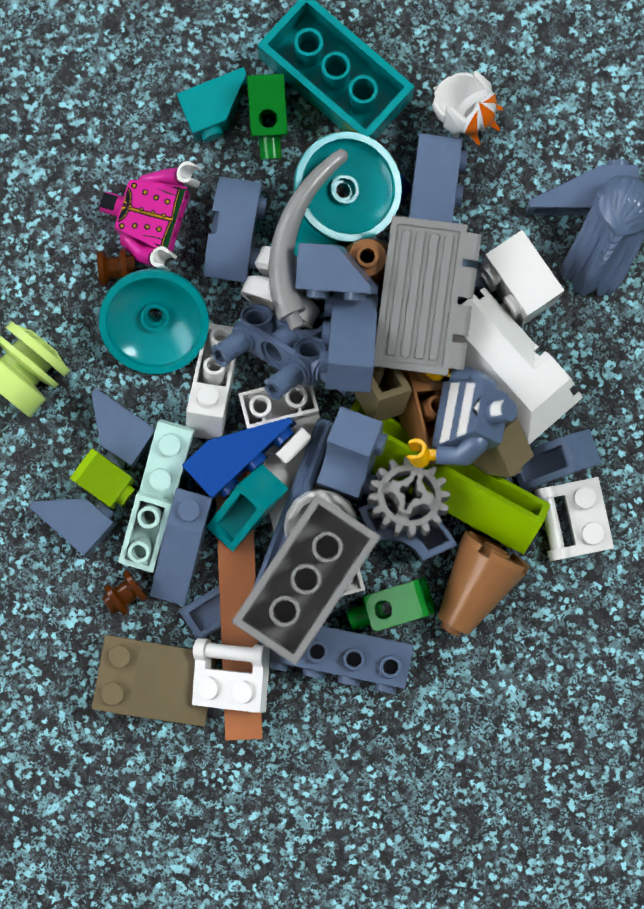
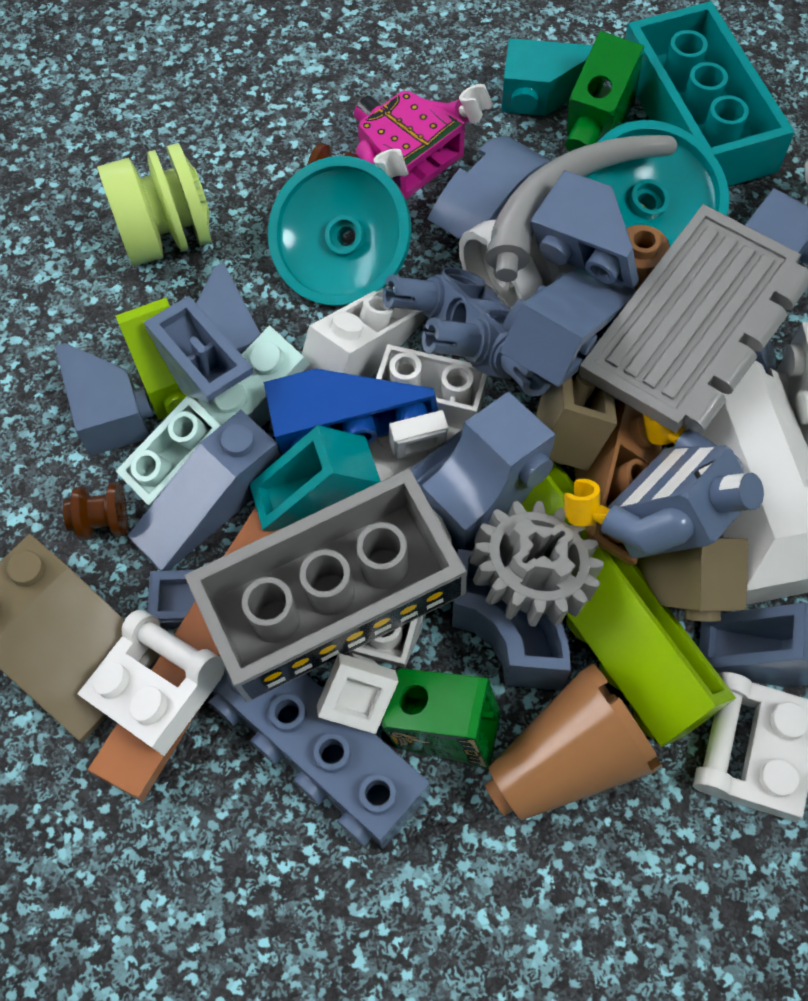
camera: 30 degrees right, 20 degrees down
(134, 472) = (196, 351): none -> sand blue slope
(351, 622) = (357, 692): none -> white tile

